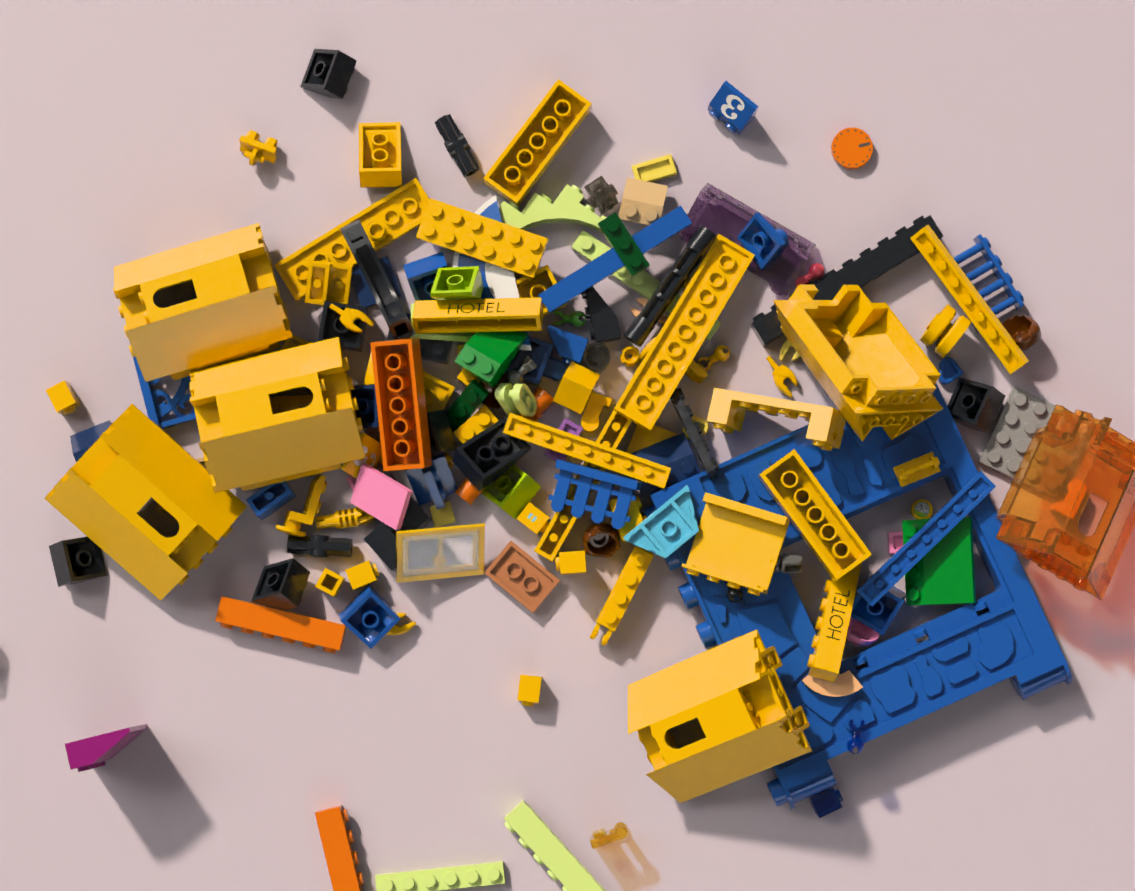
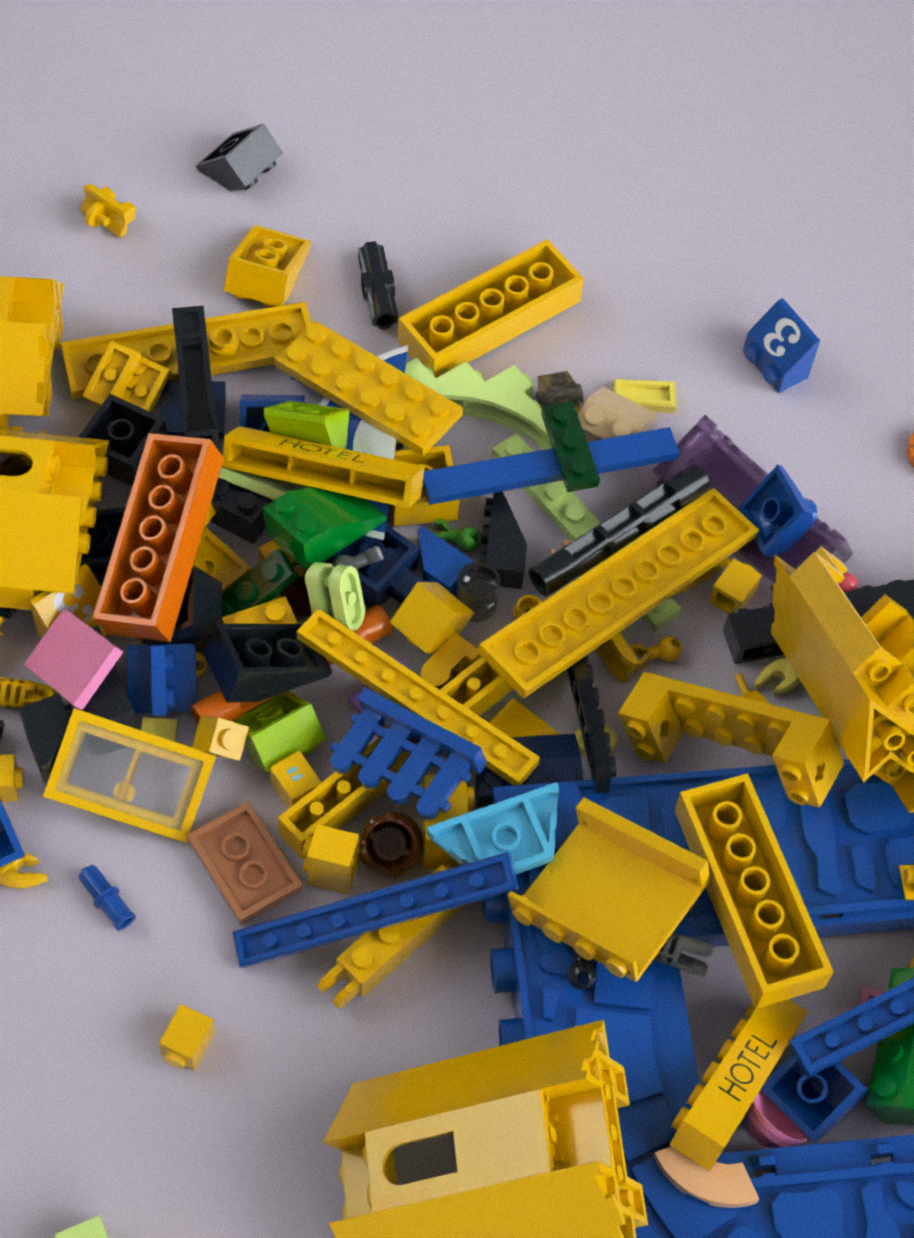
camera: 10 degrees right, 25 degrees down
(349, 316) = (136, 418): yellow hand -> none
(452, 622) = (106, 897): none -> blue axle
(481, 510) = (220, 737): none -> yellow brick
(609, 589) = (375, 910): none -> blue tile
(750, 297) = (735, 587): none -> yellow brick

